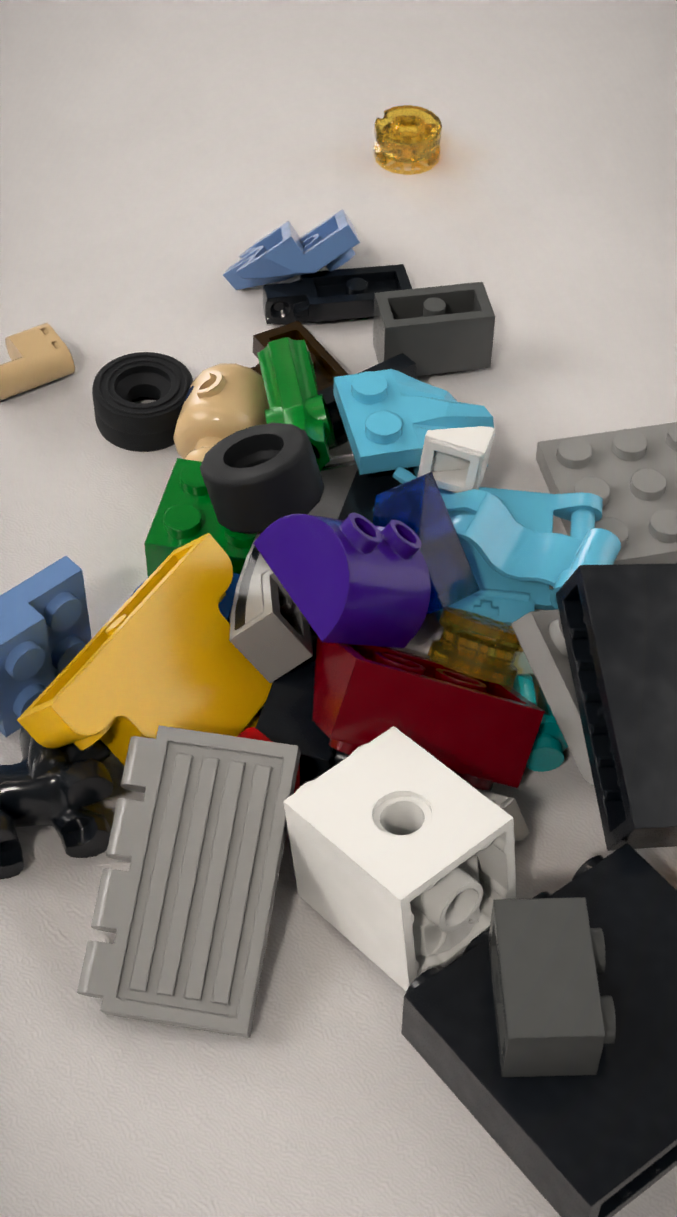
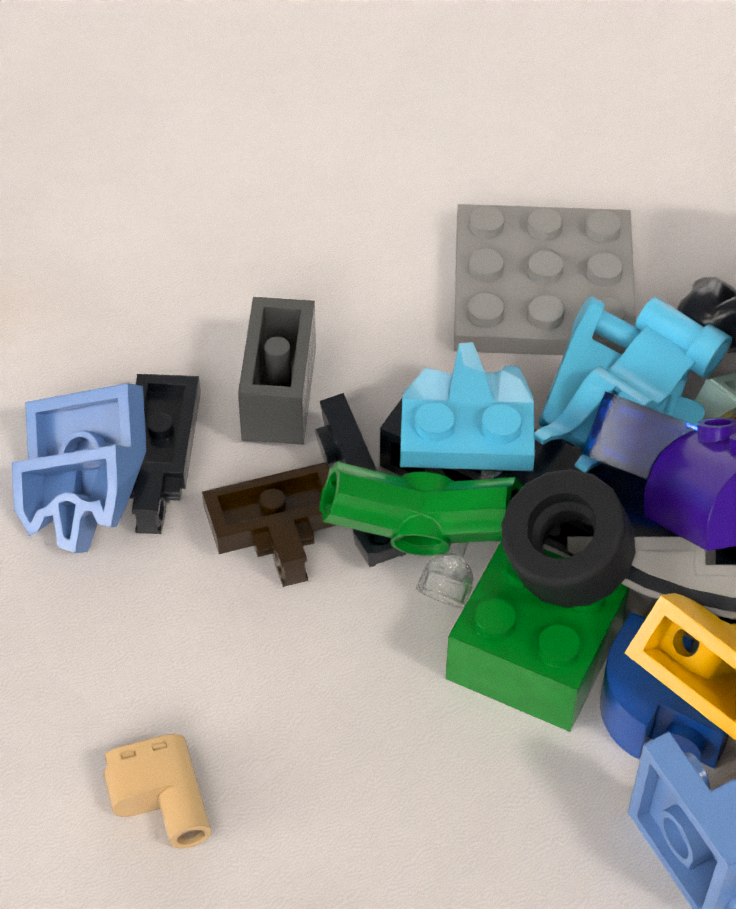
camera: 75 degrees left, 5 degrees up
(136, 378) = (281, 710): black tyre -> none
(218, 405) = (374, 595): tan piece -> none
(457, 457) = (550, 376): white slope -> none

